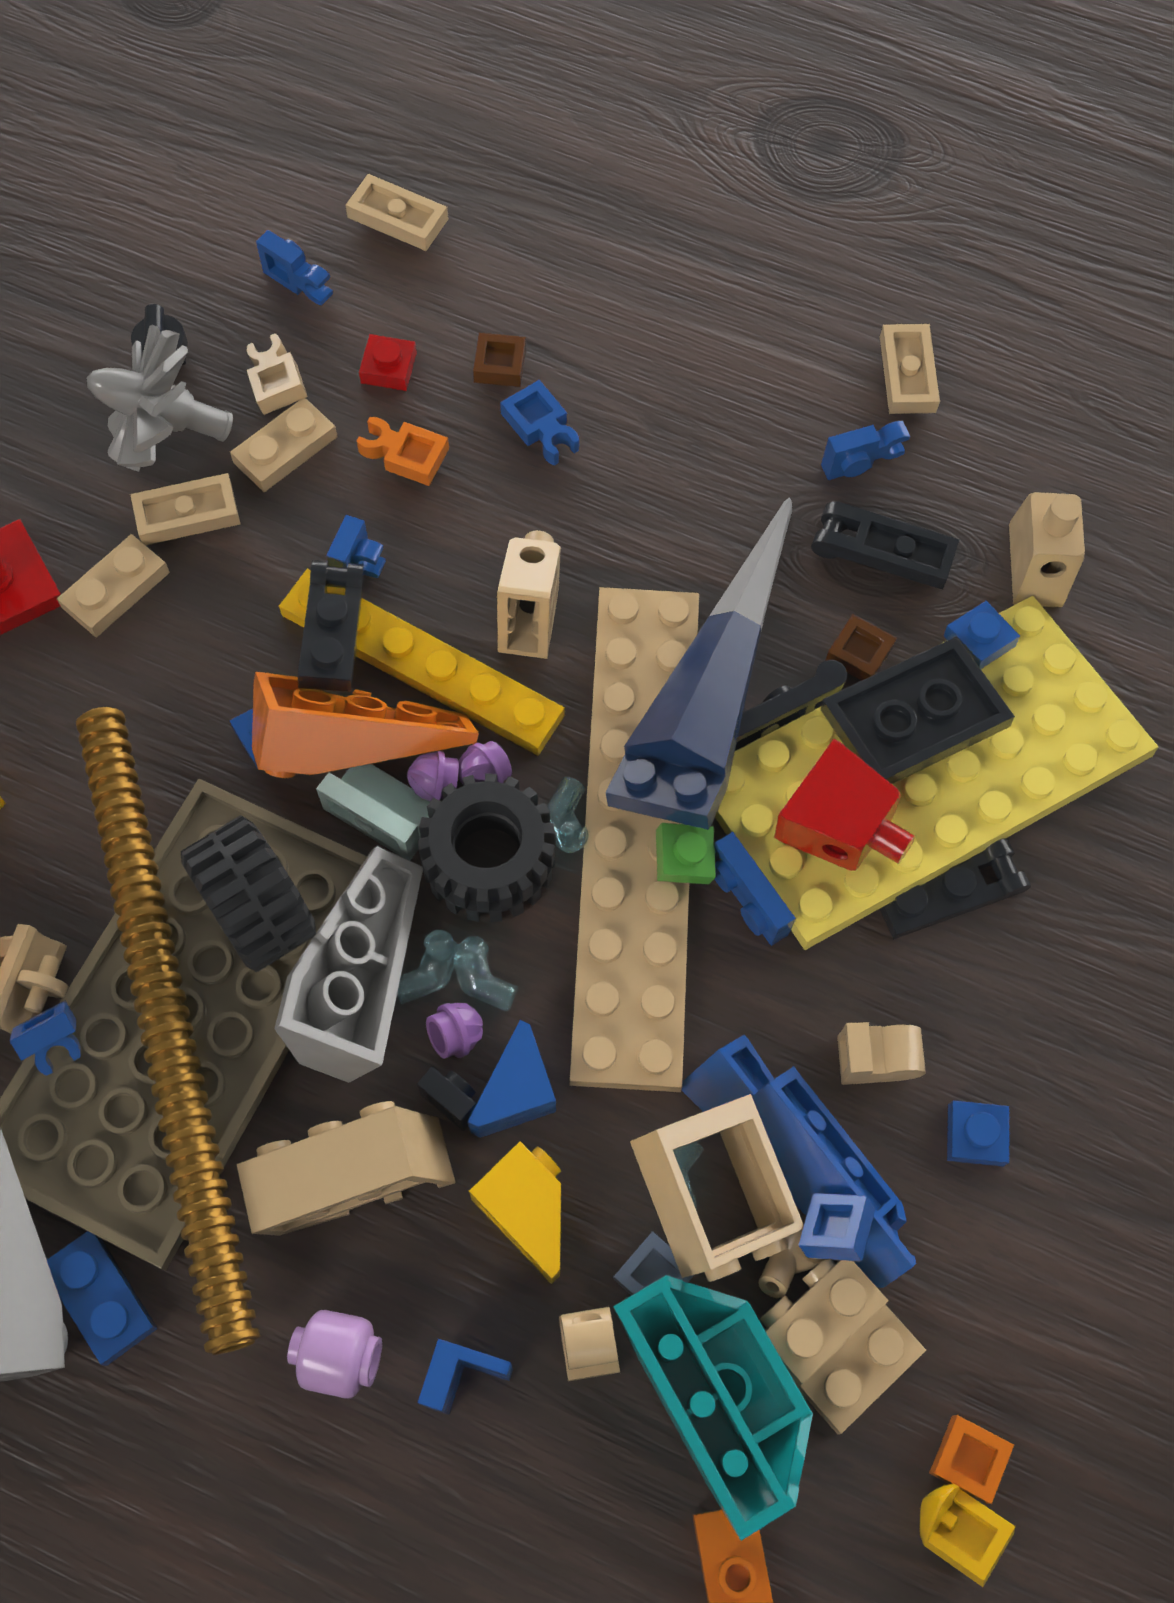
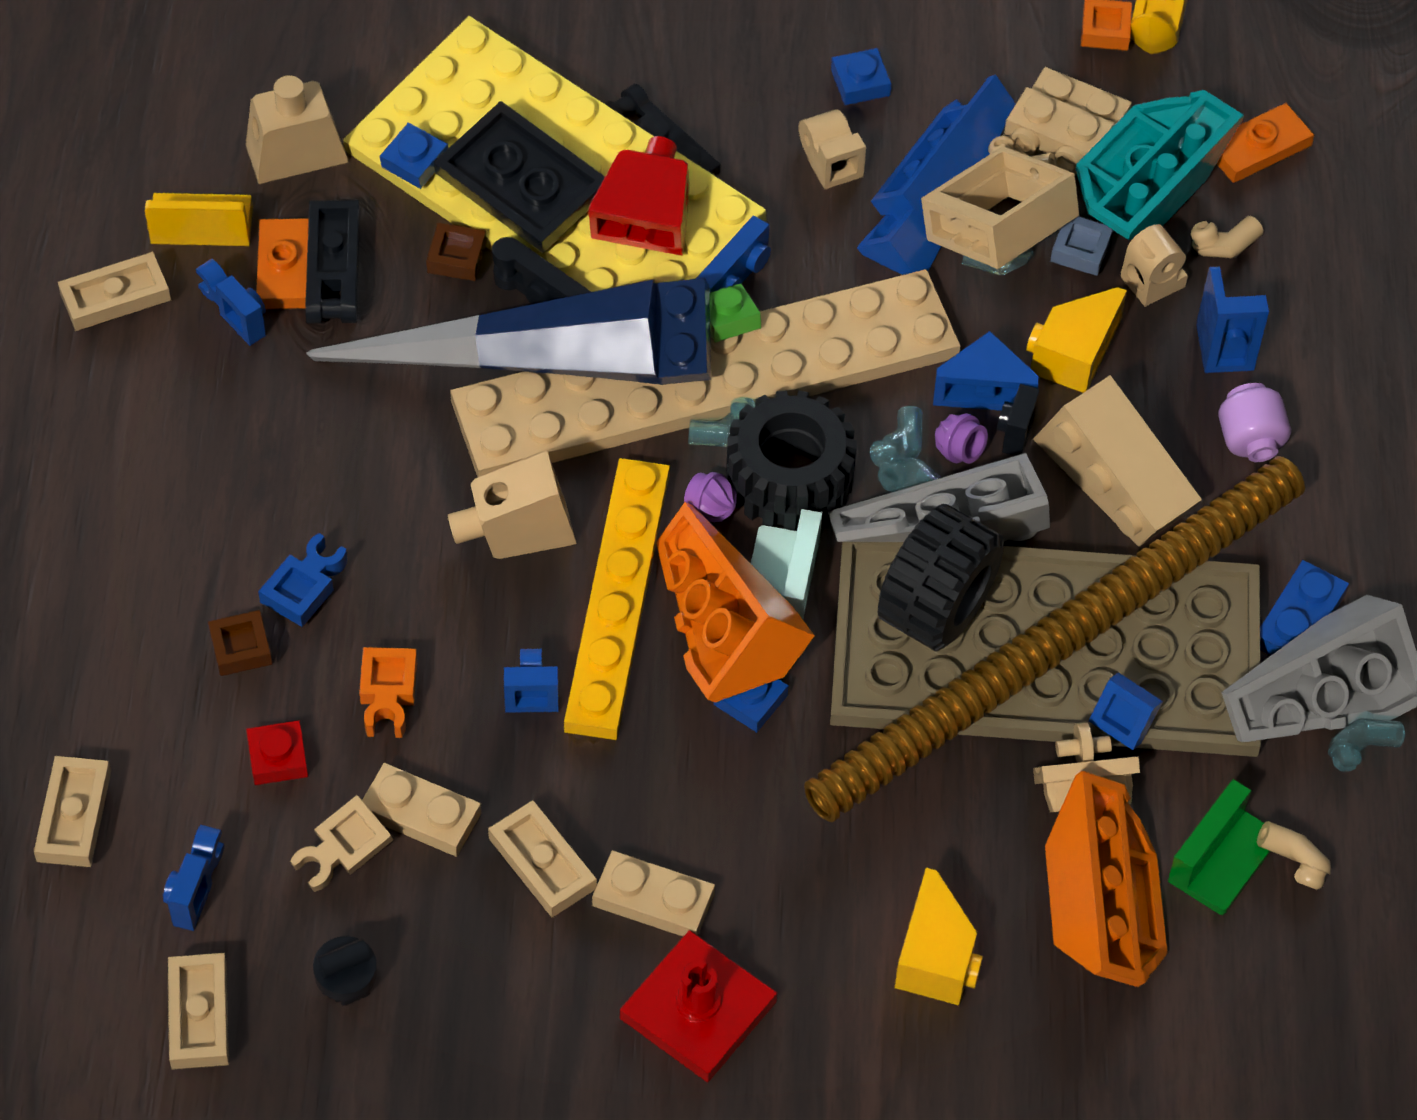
camera: 110 degrees left, 10 degrees down
(149, 403) = (461, 896): light grey piece -> none
(182, 244) = (198, 1011): none -> tan plate
(331, 627) = (631, 651): black plate -> none
(431, 774) = (739, 527): medium lavender plate -> none
(601, 1453) = (1211, 243): none -> tan arm
(837, 1227) = (993, 122): plate -> none
(903, 503) = (282, 263): none -> orange plate
(976, 458) = (199, 219): none -> yellow panel

